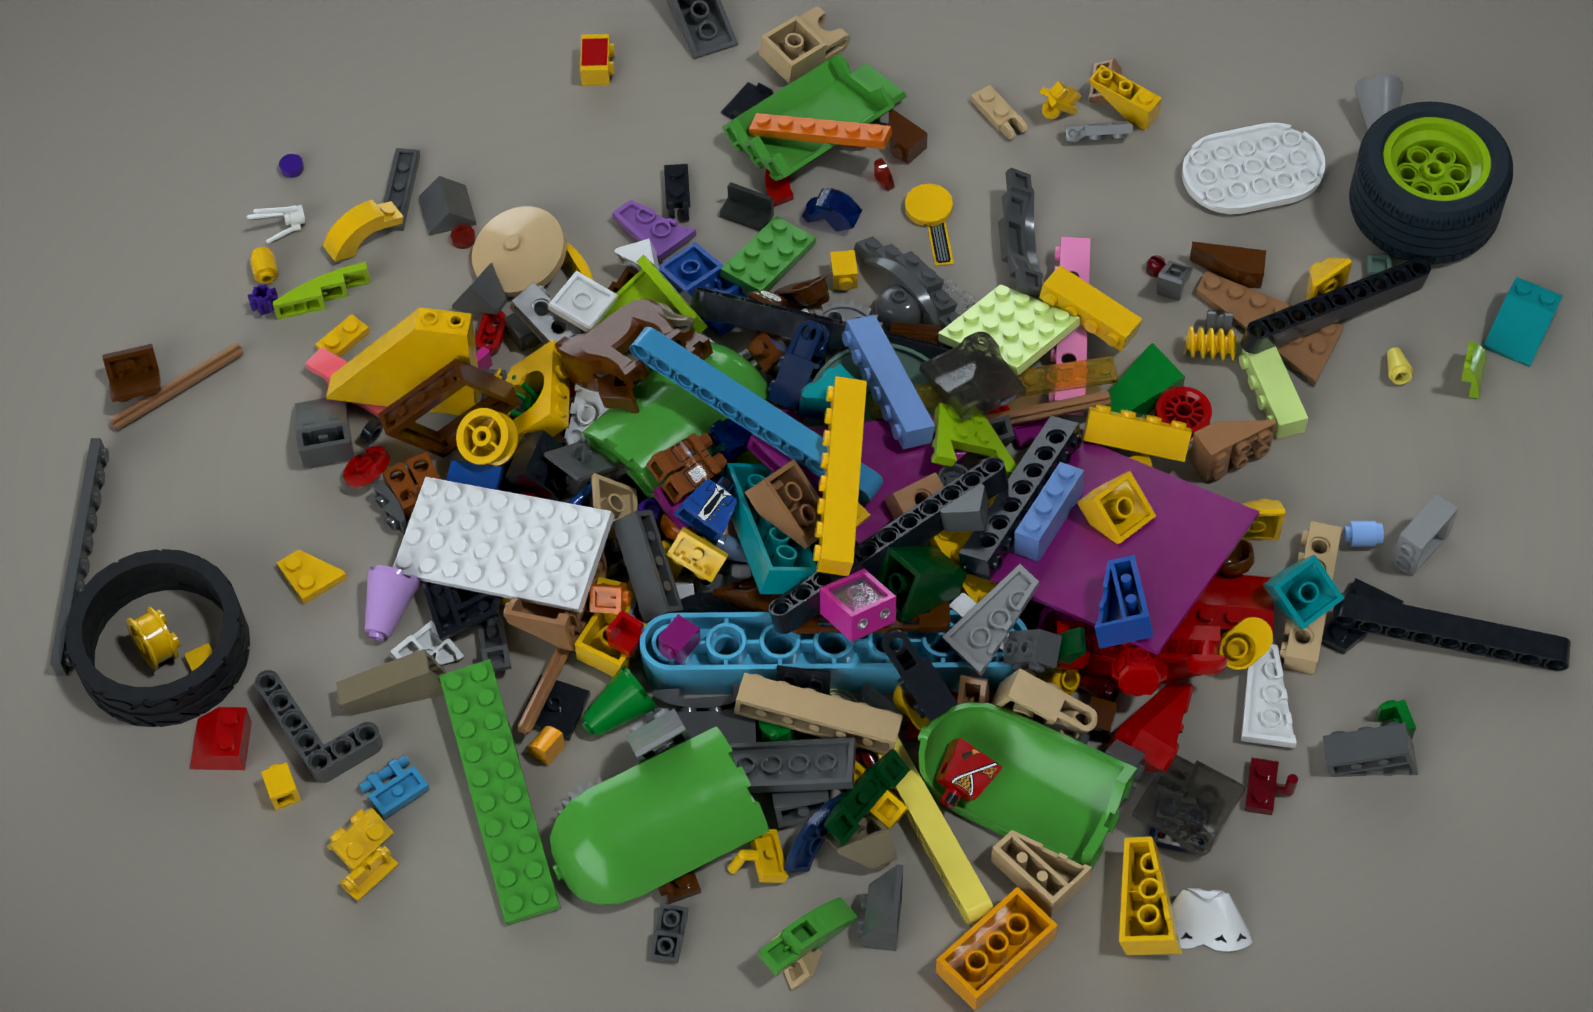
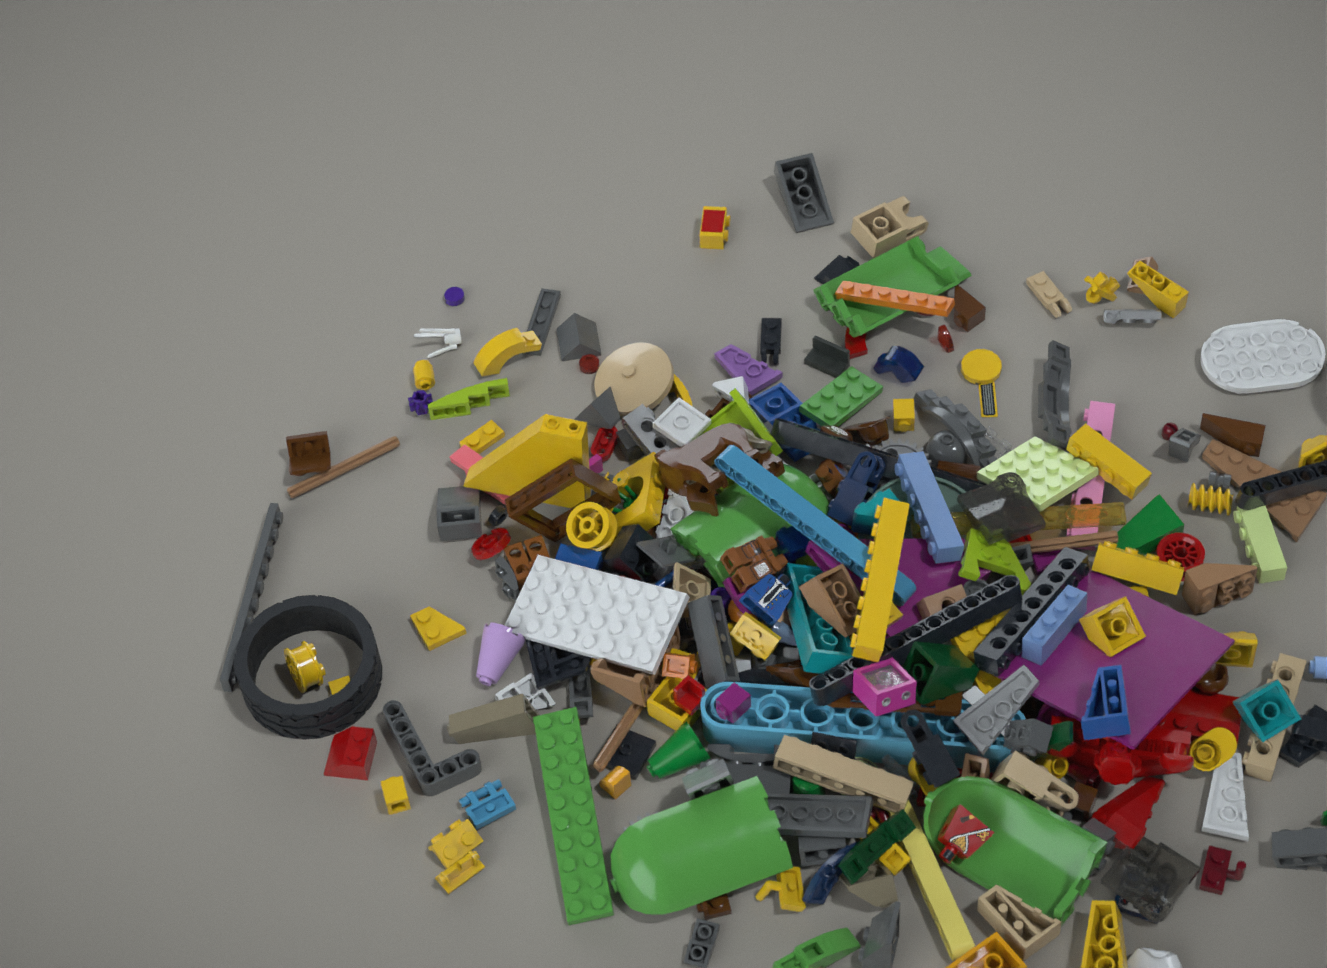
camera: 10 degrees right, 5 degrees down
(966, 512) = (984, 618): dark grey slope -> none

